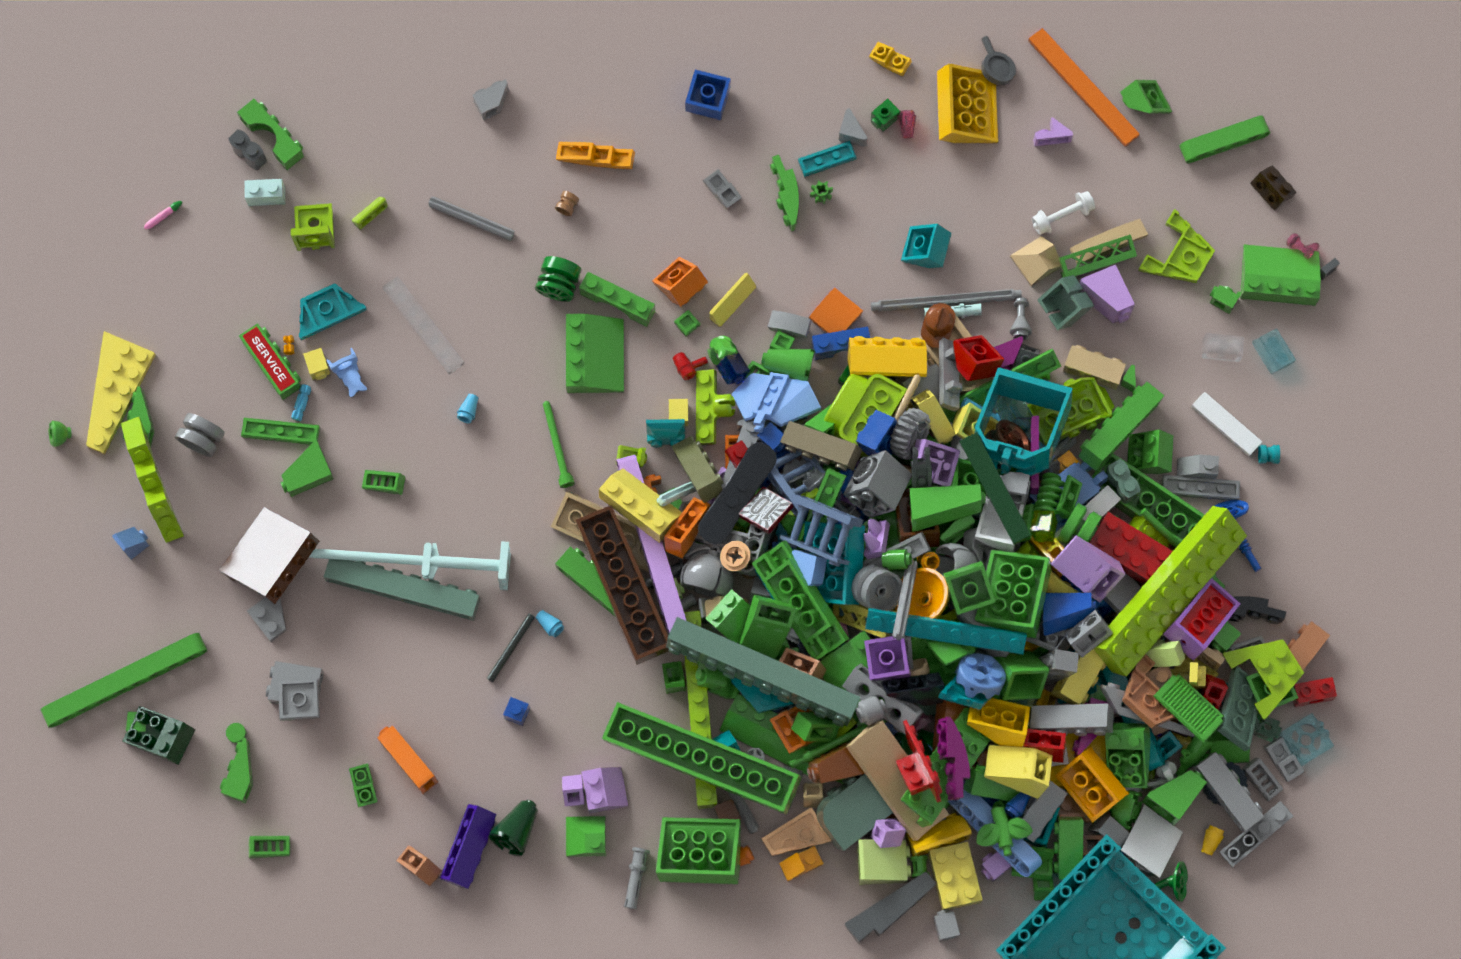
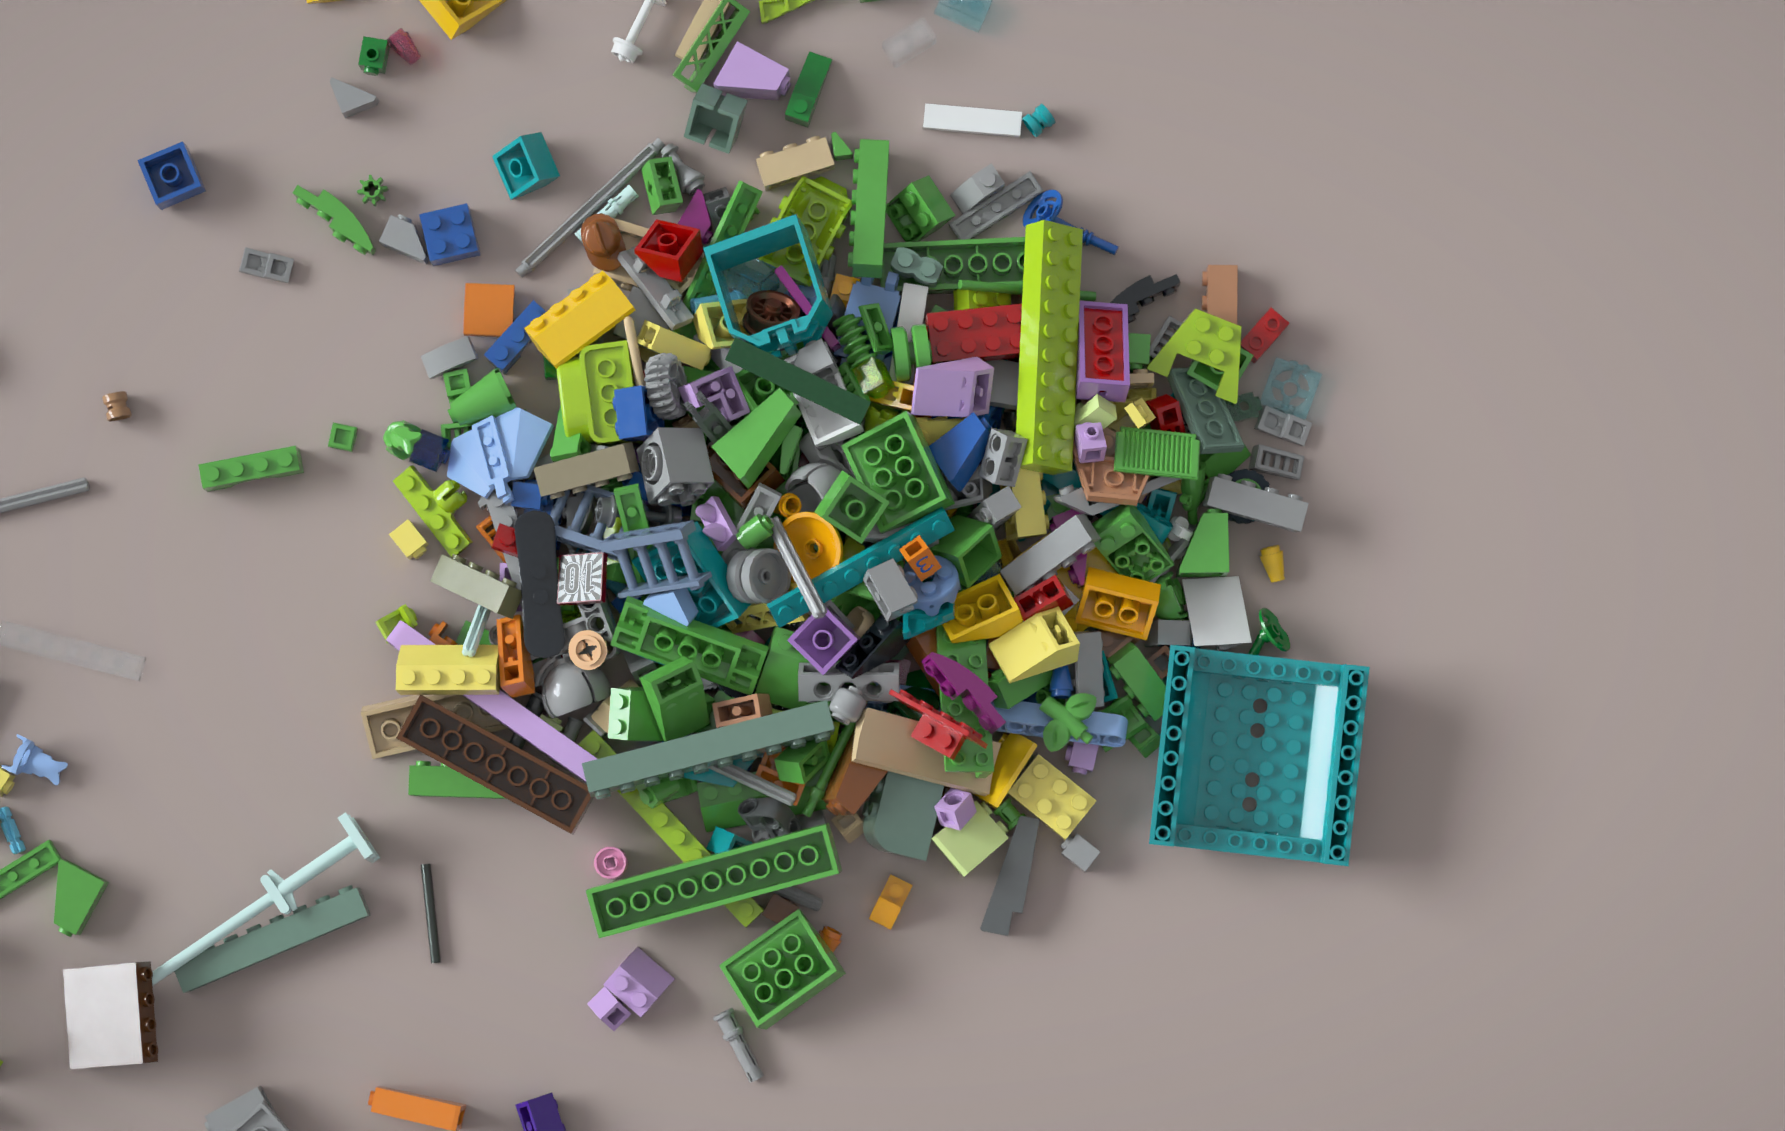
camera: 40 degrees left, 10 degrees up
(269, 618) = (161, 1077): light grey wing -> none
(395, 485) = (174, 832): bright green slope -> none
(467, 410) = (189, 703): medium azure cone -> none
(515, 828) = (582, 1090): dark green cone -> none
(516, 711) = (489, 974): blue brick -> none
(550, 623) = (452, 858): medium azure cone -> none
(558, 278) = (175, 500): green wheel -> none
(565, 478) = (348, 697): bright green piece -> none
(585, 836) = (656, 1042): bright green slope -> none
(592, 155) = (104, 331): light orange slope -> none
(594, 354) = (273, 544): bright green slope -> none
(646, 700) = (611, 863): none -> bright pink wheel
(665, 432) = (412, 572): teal slope -> none
(673, 677) = (618, 814): bright green slope -> none
(680, 281) = (301, 398): orange slope -> none
(686, 367) = (380, 485): red piece -> none
(732, 300) = (370, 377): light yellow slope -> none
(767, 745) = (769, 815): none -> dark grey piece
(775, 719) = (757, 783): none -> light grey axle
(796, 834) = (863, 877): light nougat wing -> none
(817, 233) = (403, 238): none -> light grey slope
(827, 159) = (350, 148): teal tile -> none
(847, 252) = (450, 234): none -> blue brick
(954, 657) = (890, 589): none -> light grey brick
(988, 653) = (920, 558): none -> orange brick
(1001, 318) = (662, 185): none -> bright green brick
(1037, 260) = (650, 92): tan slope -> none
(1136, 329) = (808, 89): none -> green slope
(1151, 667) = (1090, 442): none -> lavender brick
(1255, 835) = (1309, 540): light grey slope -> none

